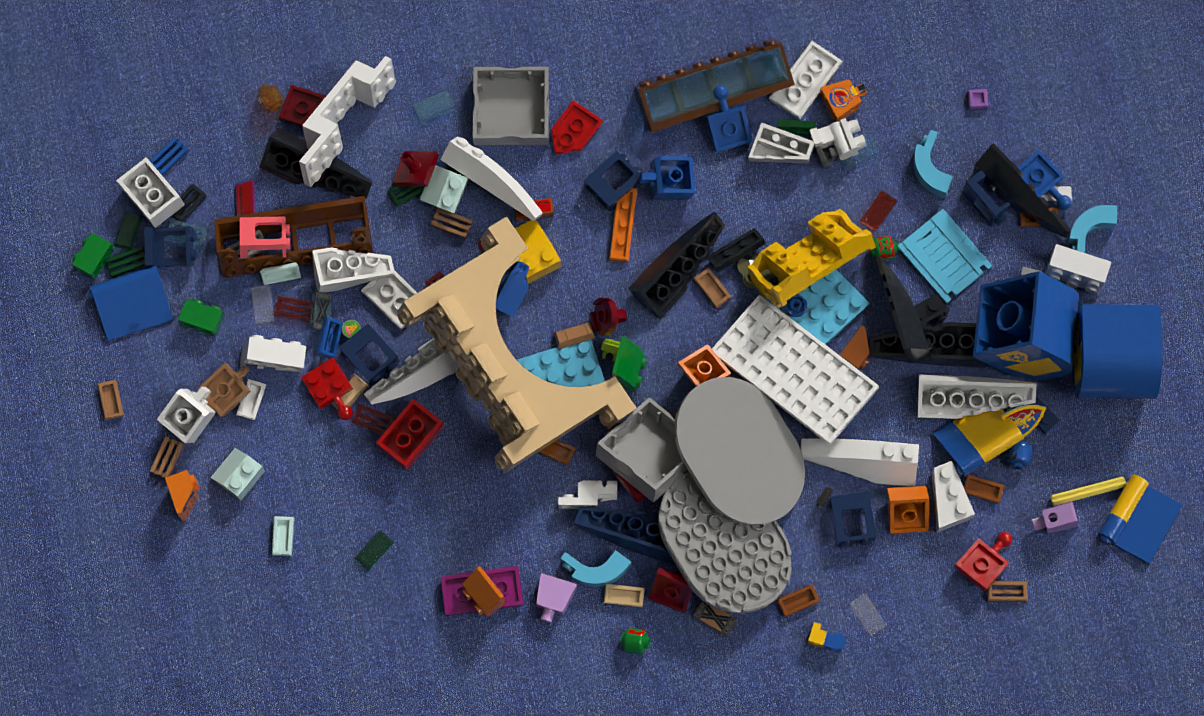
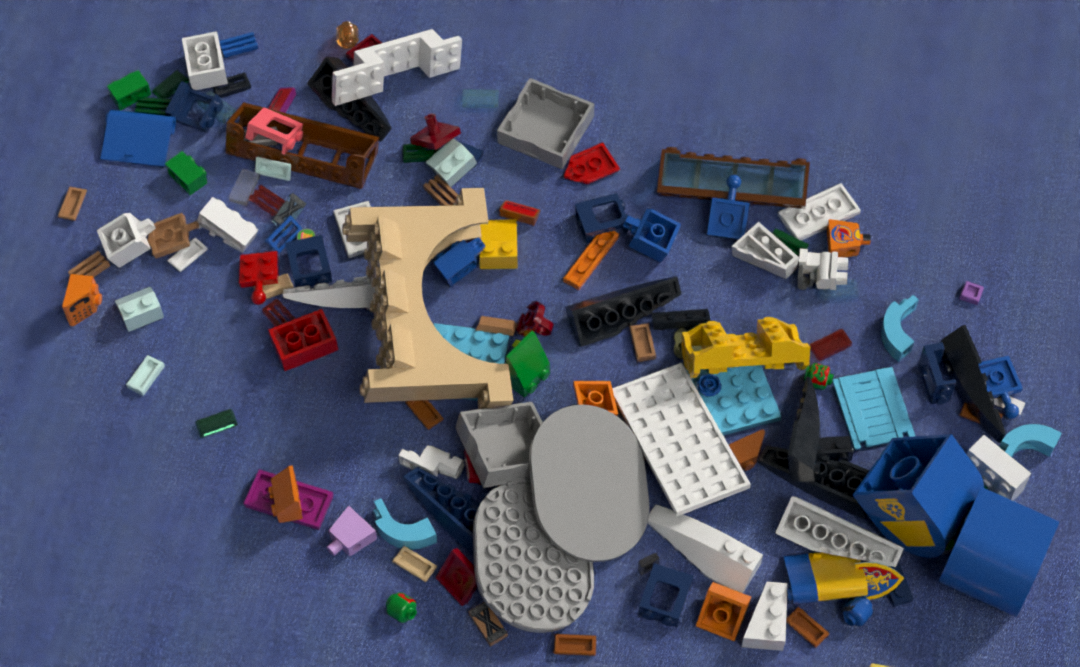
camera: 25 degrees right, 15 degrees down
(344, 269) = (326, 186): white wedge -> none
(489, 175) = (493, 162): white wedge -> none

